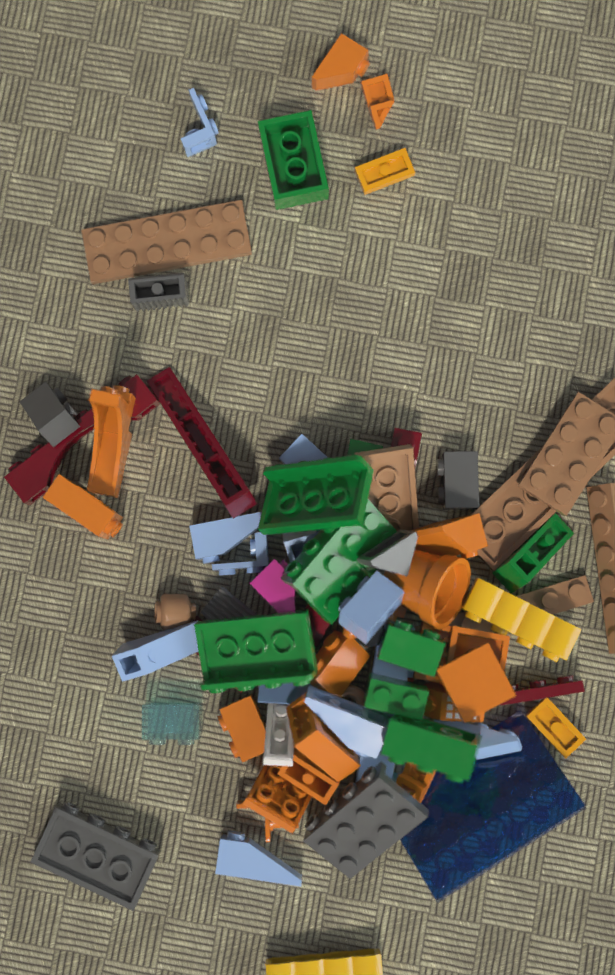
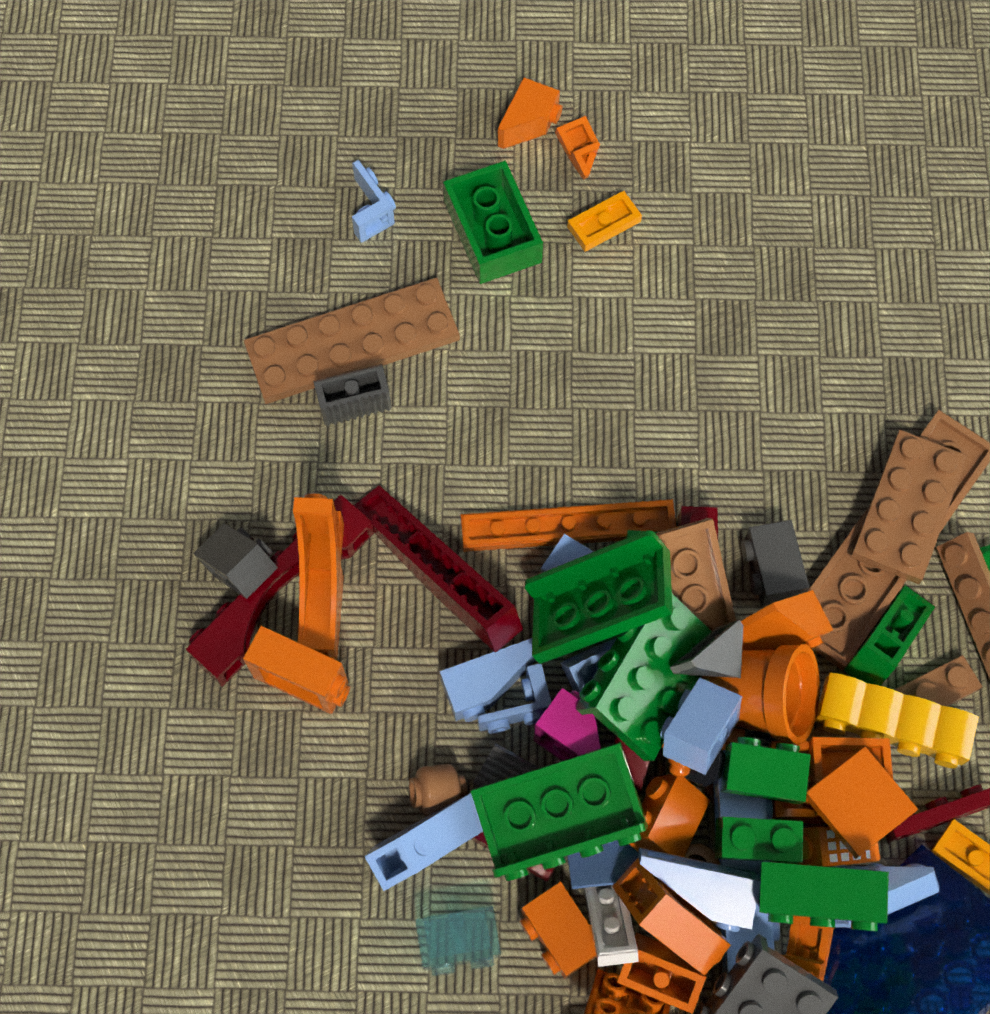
camera: 15 degrees left, 15 degrees down
(309, 422) = (548, 525): none -> orange tile

